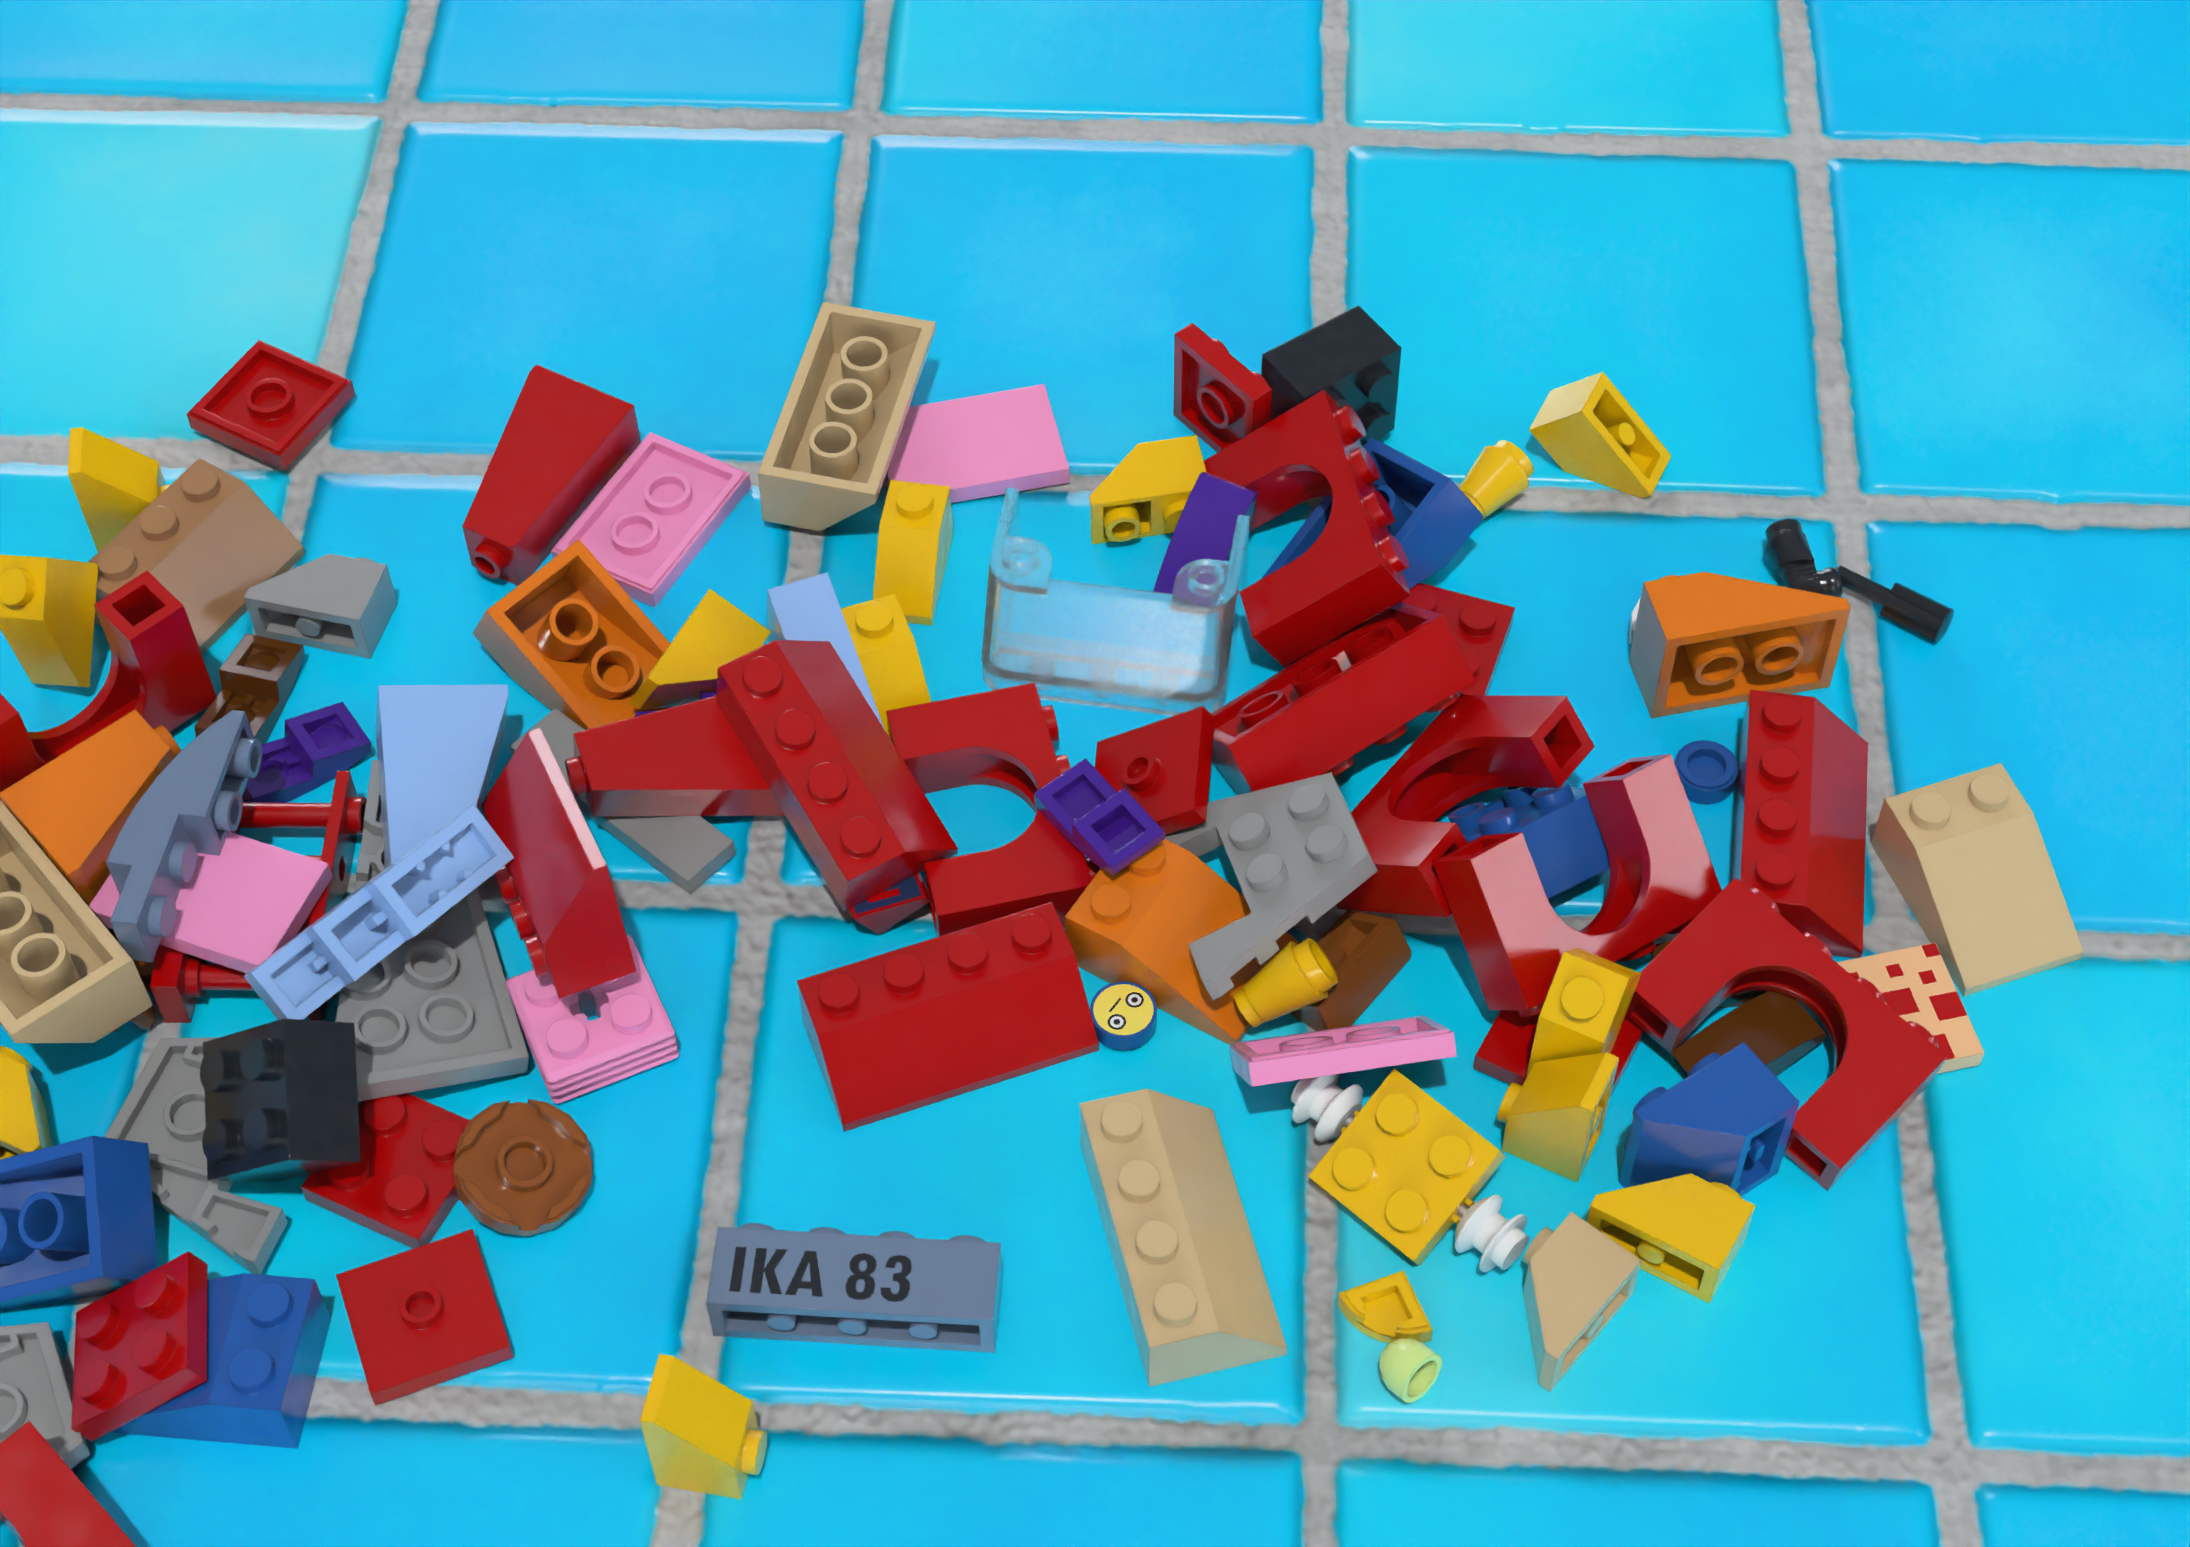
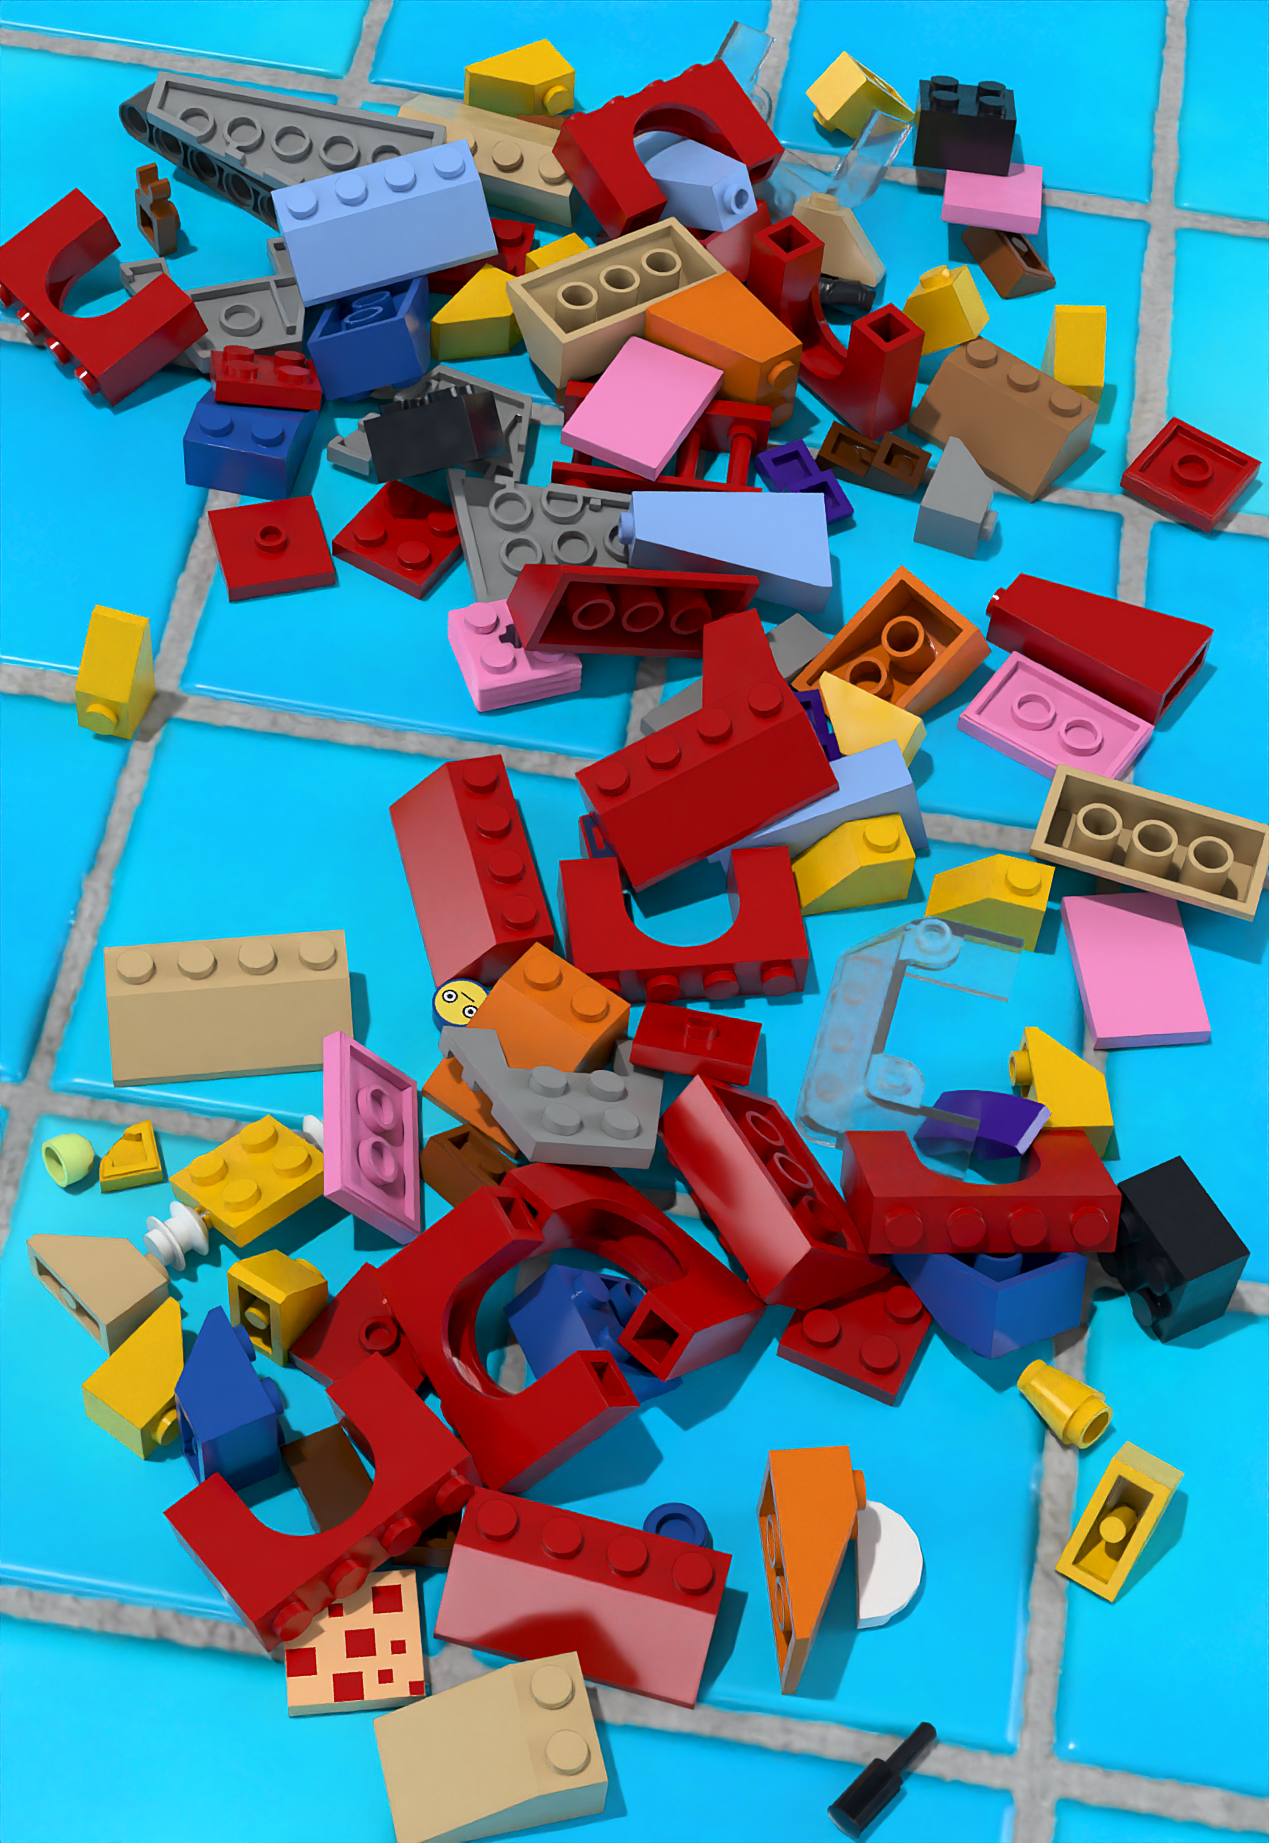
camera: 90 degrees right, 0 degrees up
(178, 816) = (695, 368): sand blue slope -> none
(379, 916) = (587, 486): light blue slope -> none
(522, 1167) = (381, 600): dark orange tile -> none
(855, 1288) = (226, 794): sand blue brick -> none
(1097, 819) = (633, 974): dark purple slope -> none
(1215, 391) = (1178, 1130): red plate -> none
(1287, 983) = (452, 1111): yellow cone -> none
(1583, 1007) = (353, 1305): yellow slope -> none
(1793, 560) = (933, 1686): black arm -> none

